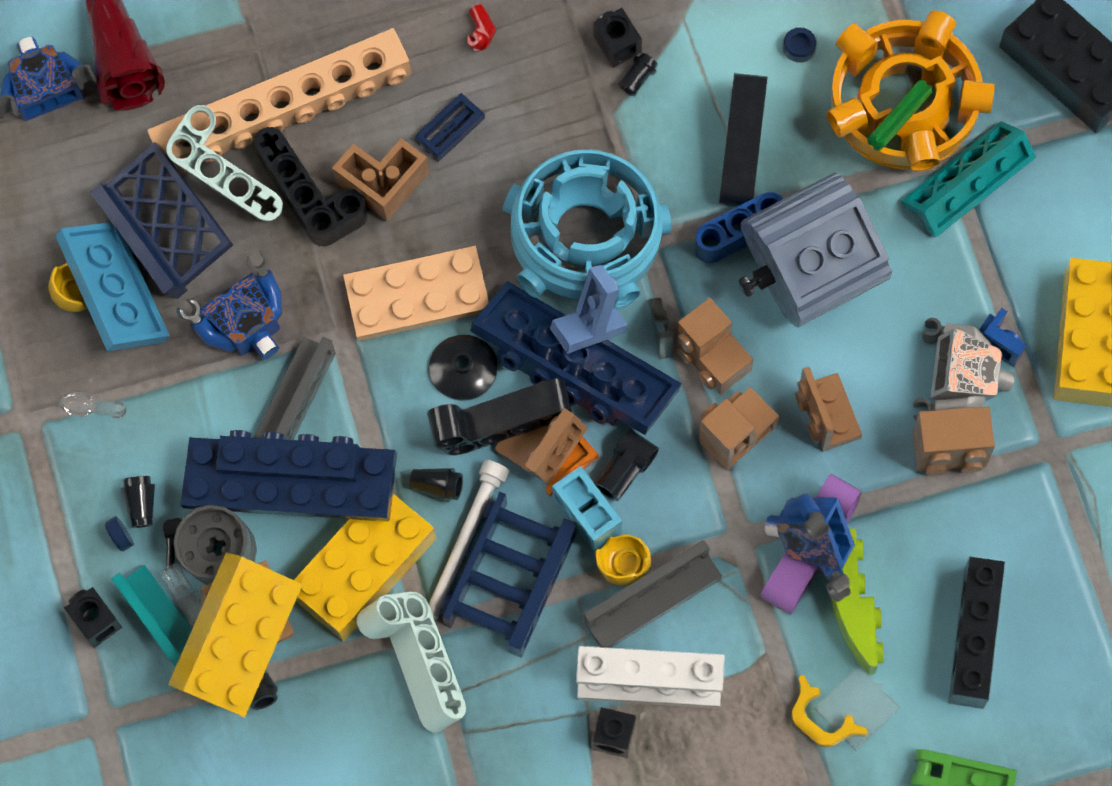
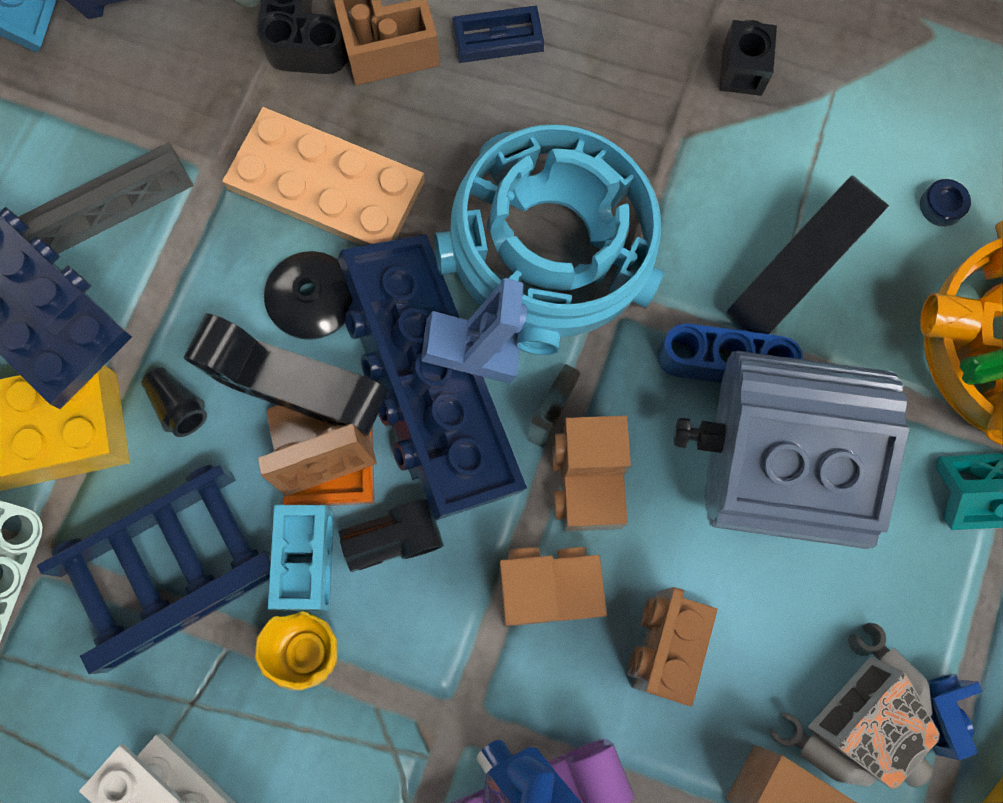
camera: 30 degrees right, 5 degrees up
(241, 315) = (122, 74): torso -> none
(491, 477) = (235, 440): white piece -> none
(637, 75) = (742, 112): black pin -> none
(652, 596) = (298, 720): dark grey fence -> none

